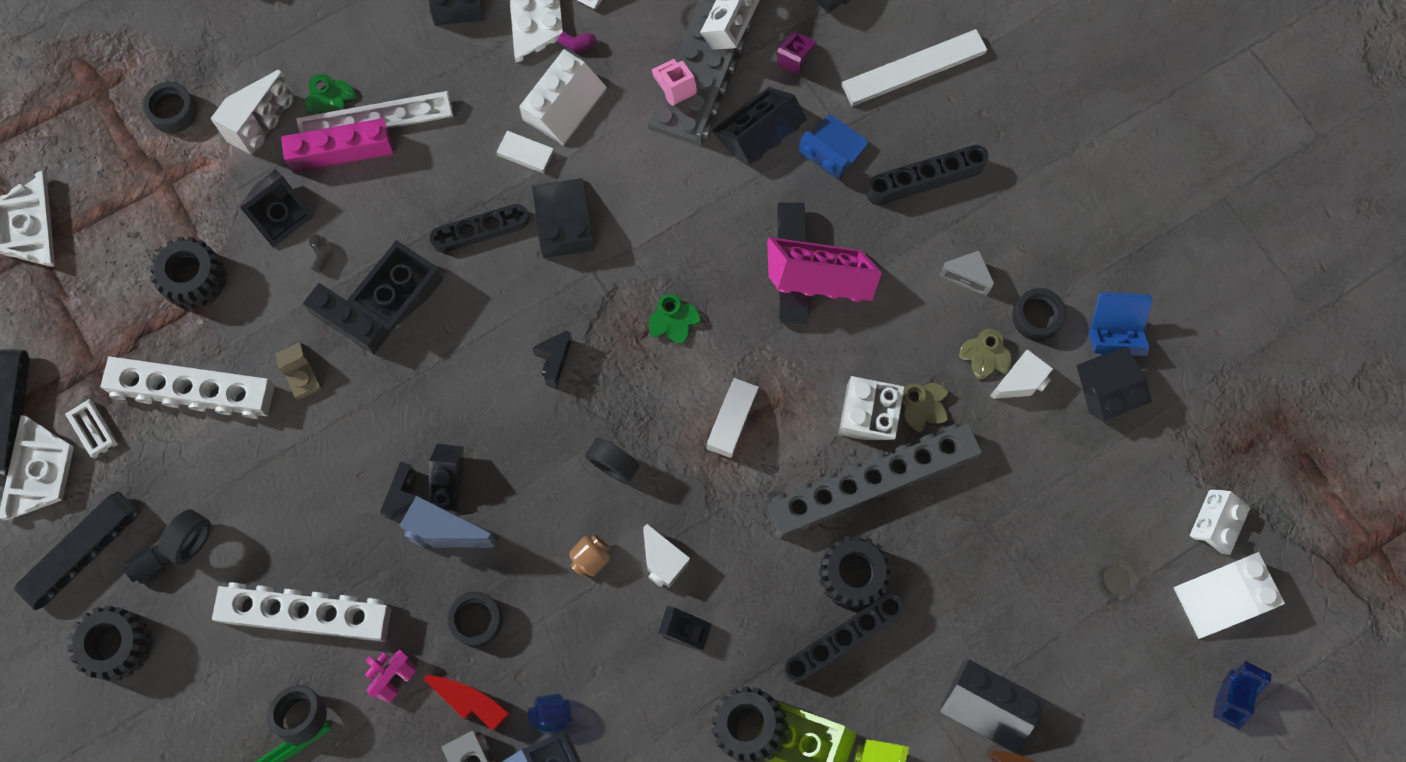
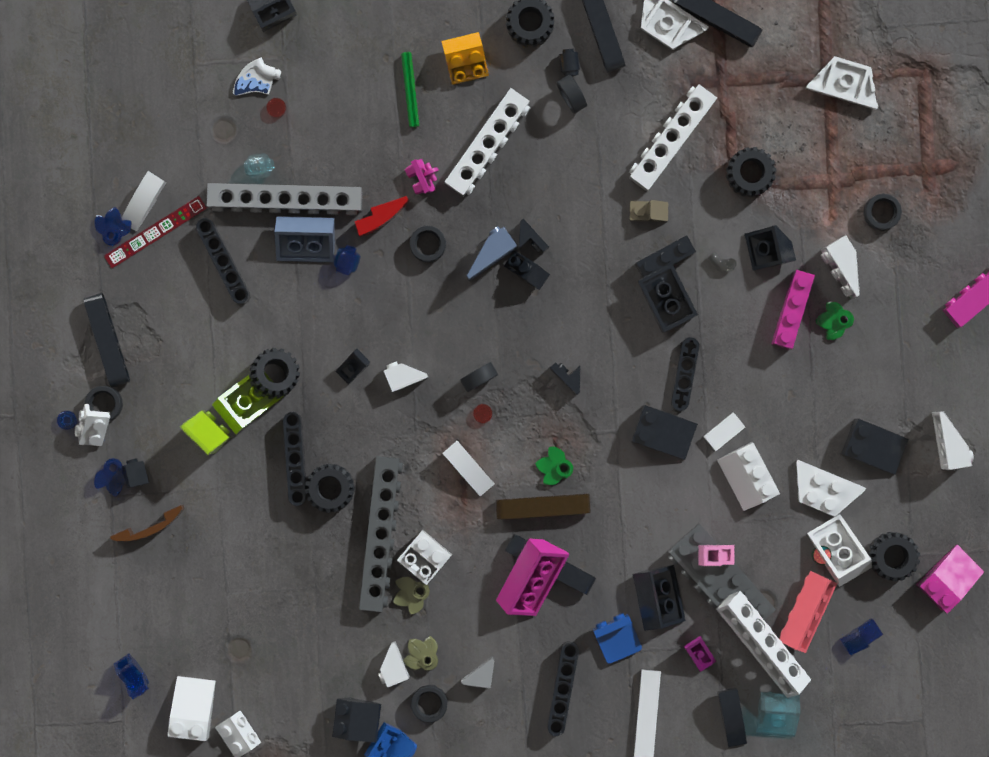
camera: 120 degrees right, 15 degrees up
(102, 446) = (662, 67): white tile -> none
(199, 703) = (465, 58): none -> light orange slope
(281, 705) = (440, 112): black tyre -> none
(396, 113) = (804, 341): white tile -> none
(577, 44) = (785, 508): magenta arm -> none
(589, 555) = (428, 332): medium nougat head -> none
(655, 437) = (482, 413): none -> clear red tile
(729, 306) = (543, 506): none -> dark brown beam
(992, 706) = (207, 524): black slope -> none

